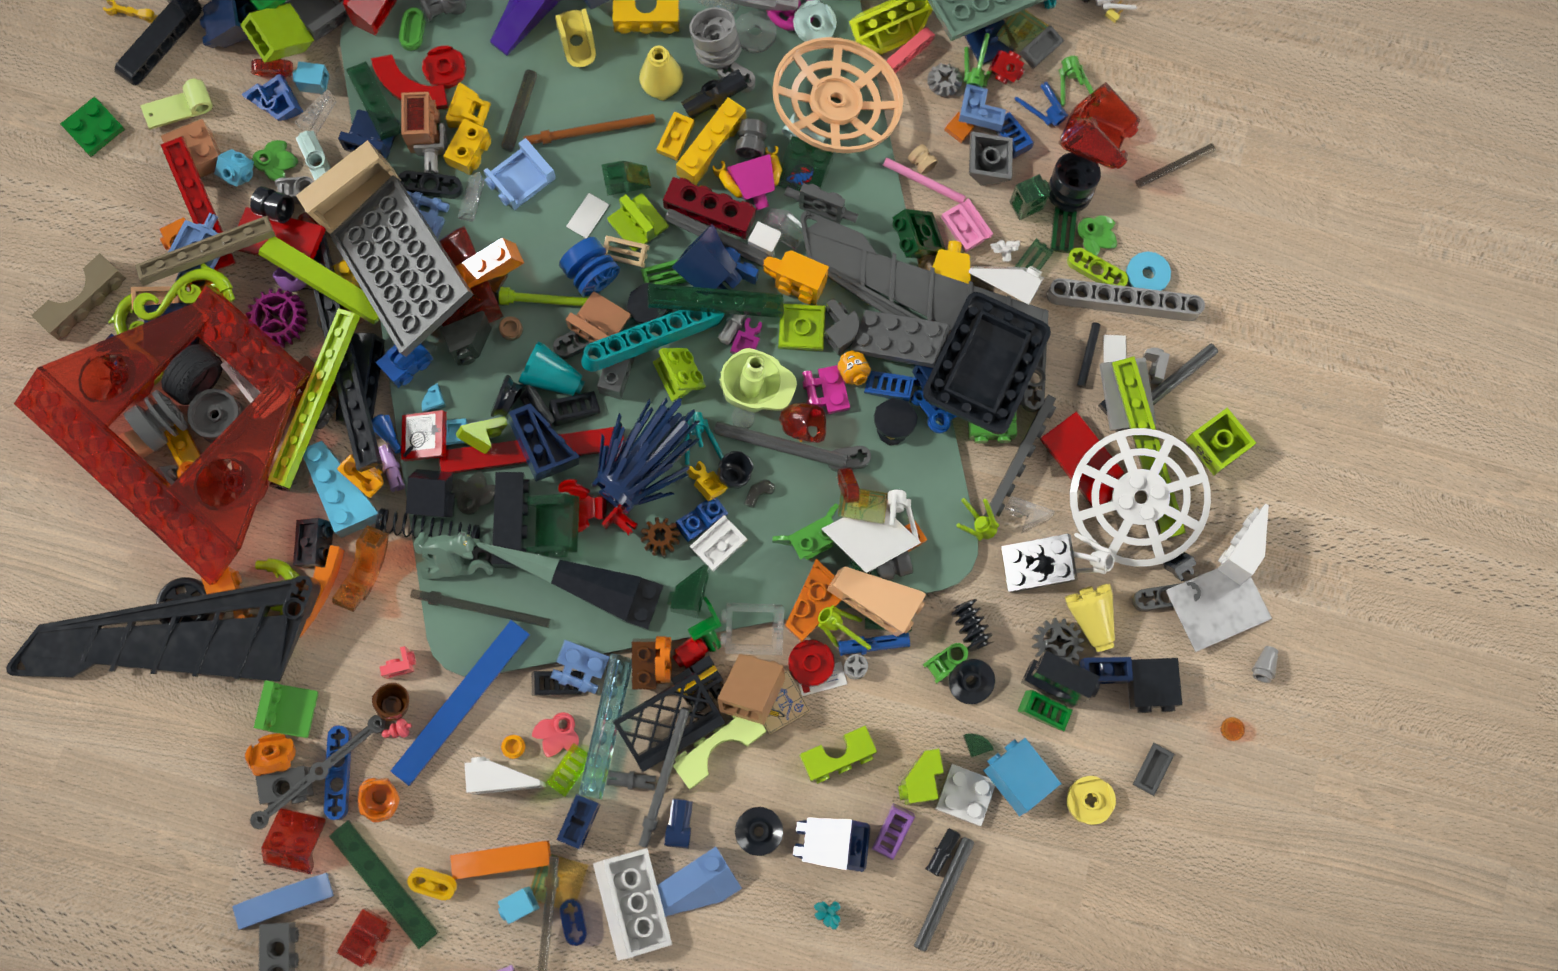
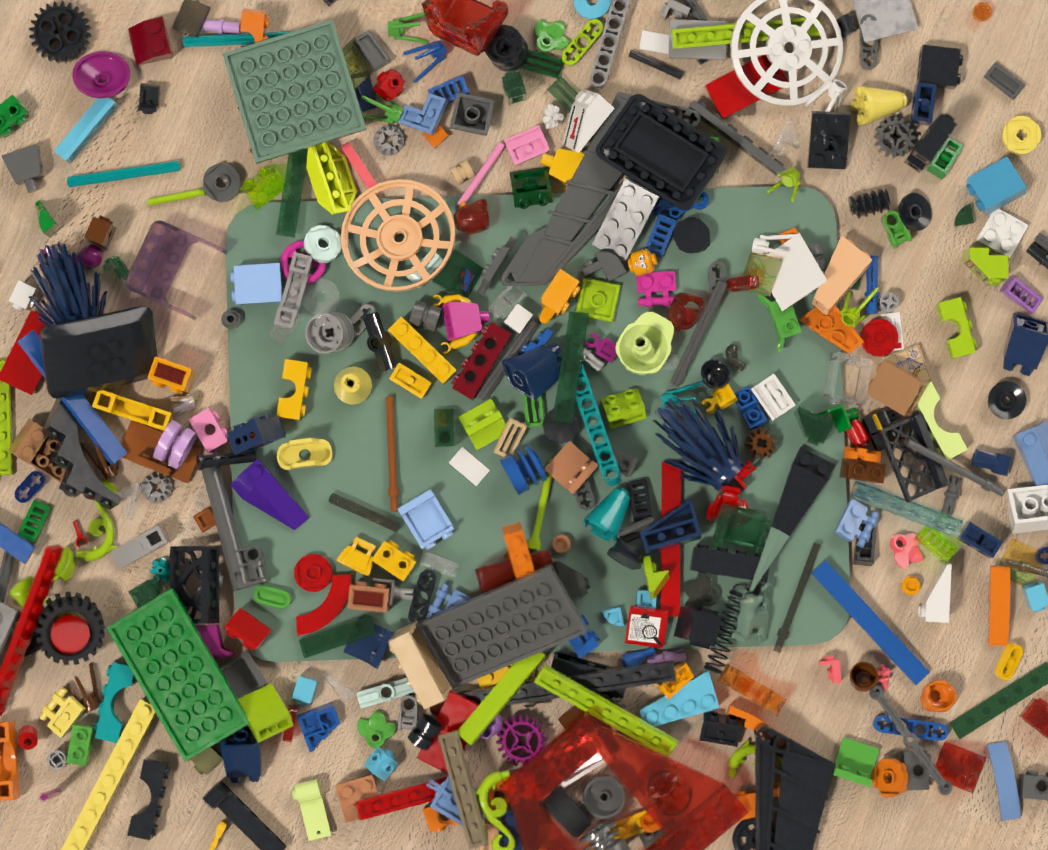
camera: 80 degrees left, 10 degrees up
(868, 171) = (472, 217): none -> clear red piece

